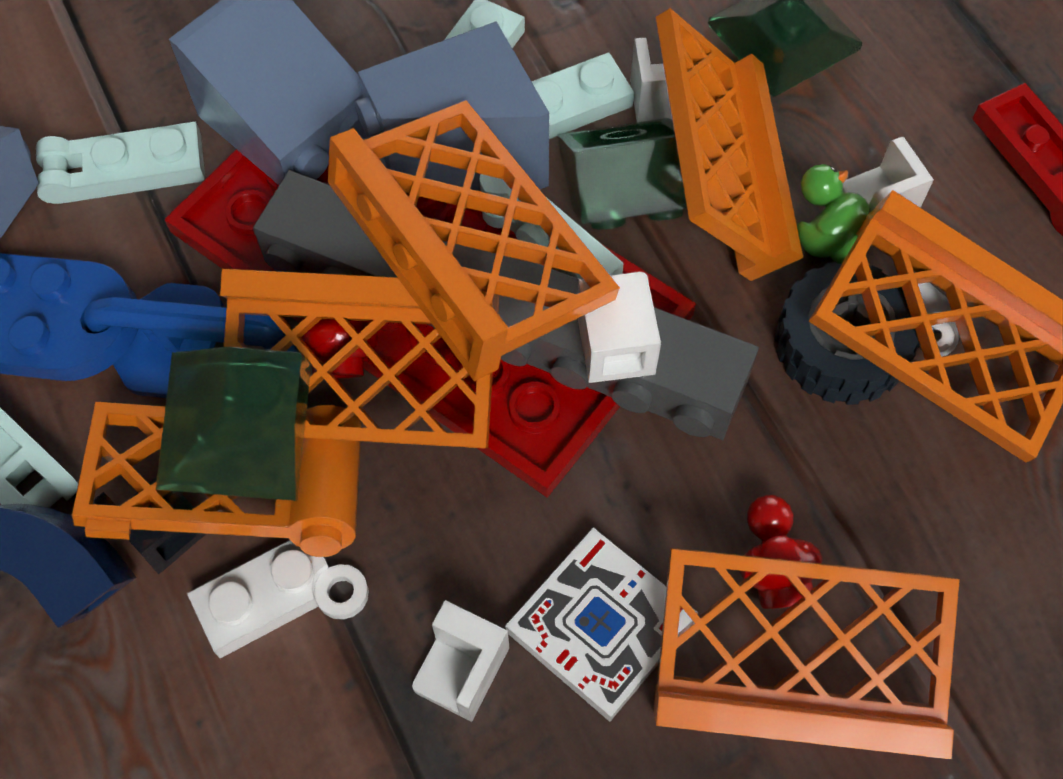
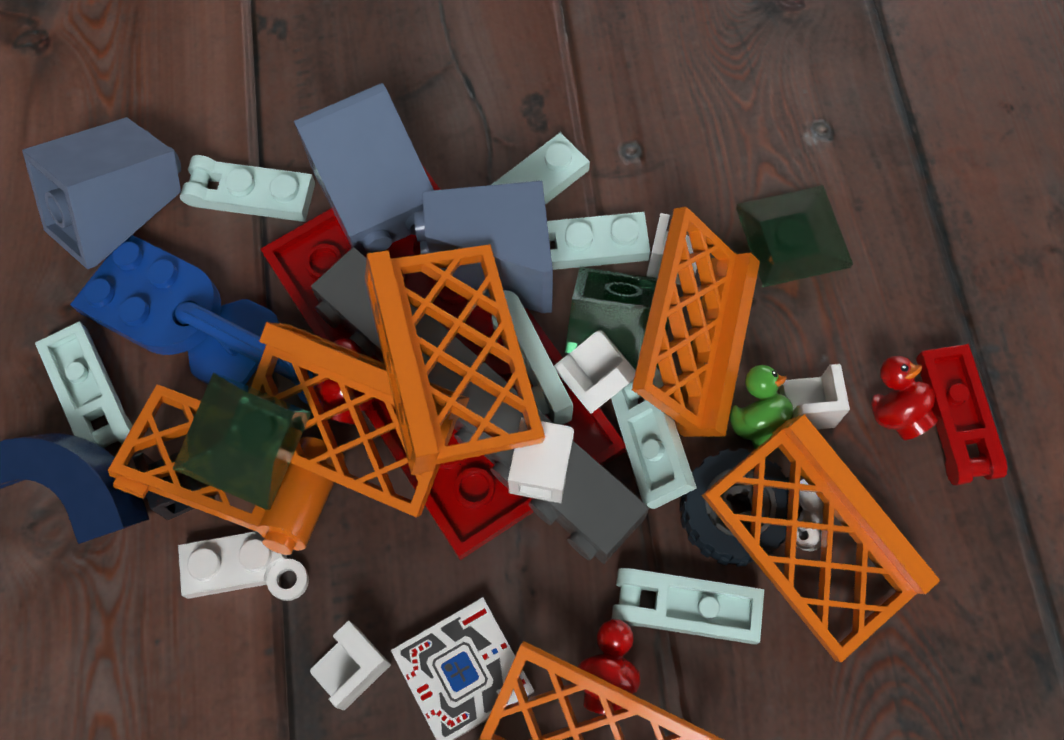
camera: 20 degrees right, 5 degrees up
(631, 225) = (595, 371): none -> white panel
(723, 285) = (653, 448): none -> light aqua plate
(840, 455) = (691, 606): none -> light aqua plate
(990, 165) = (909, 404): none -> red animal

